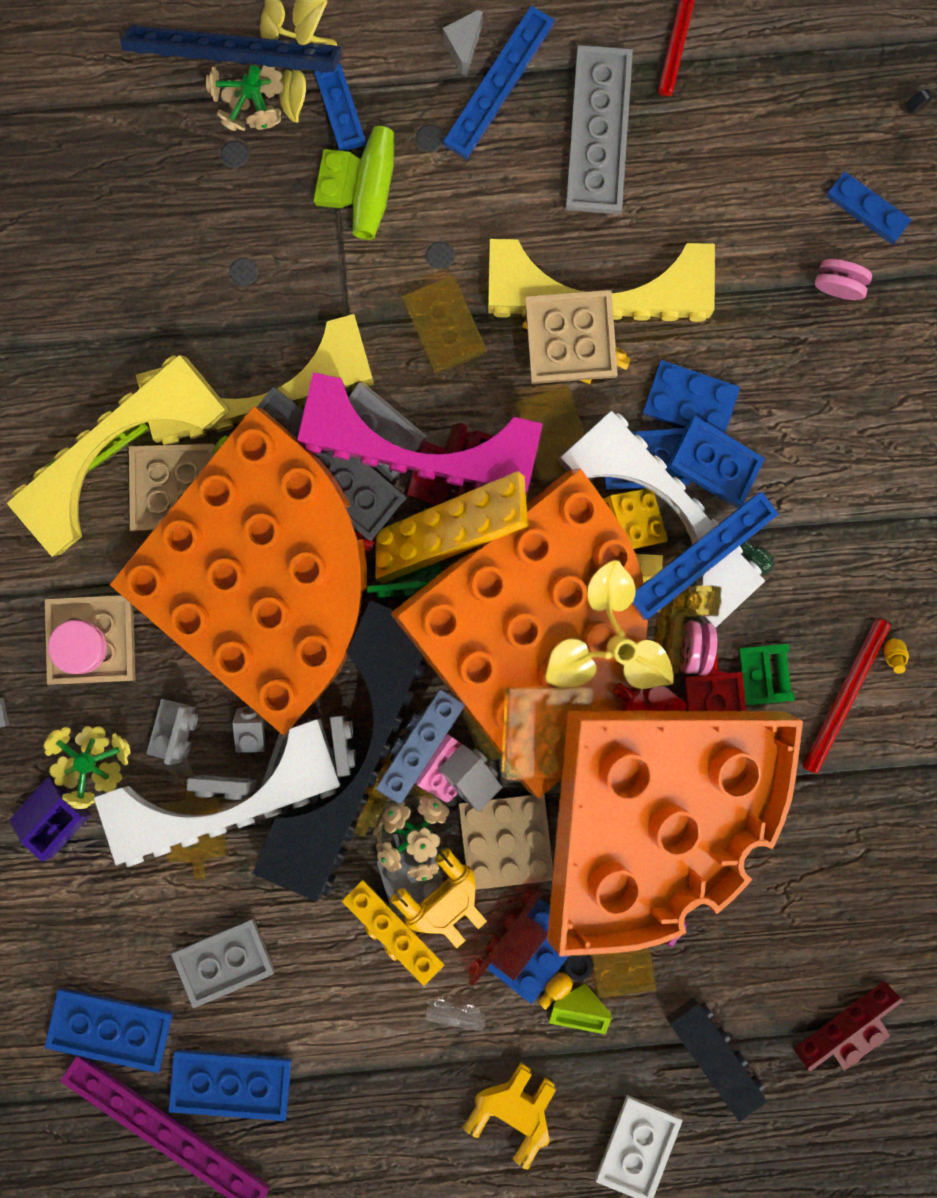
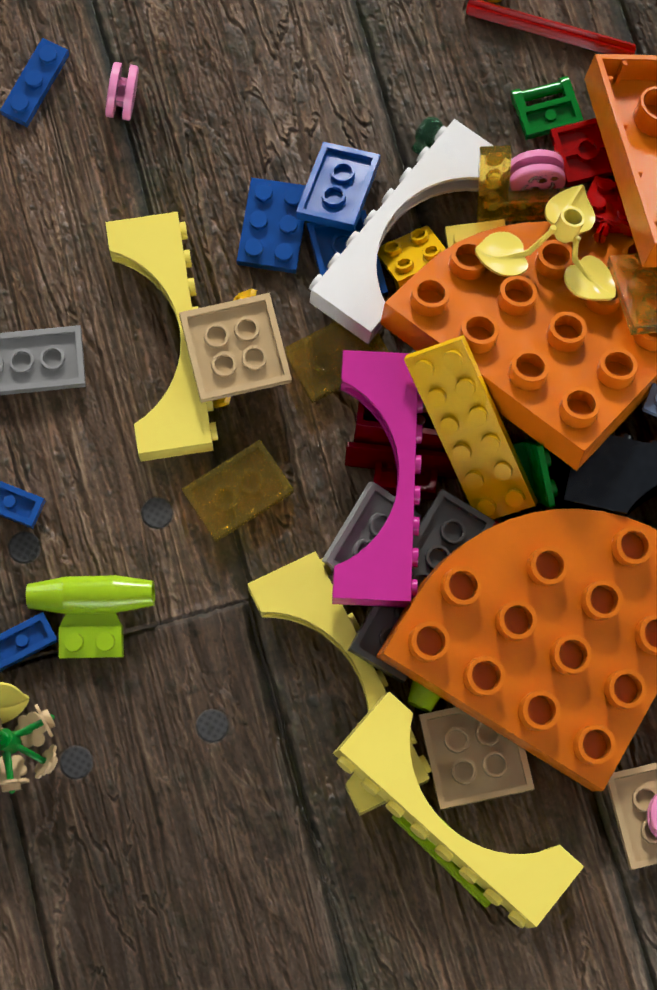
camera: 100 degrees left, 10 degrees down
(703, 555) = (444, 176): blue plate -> none

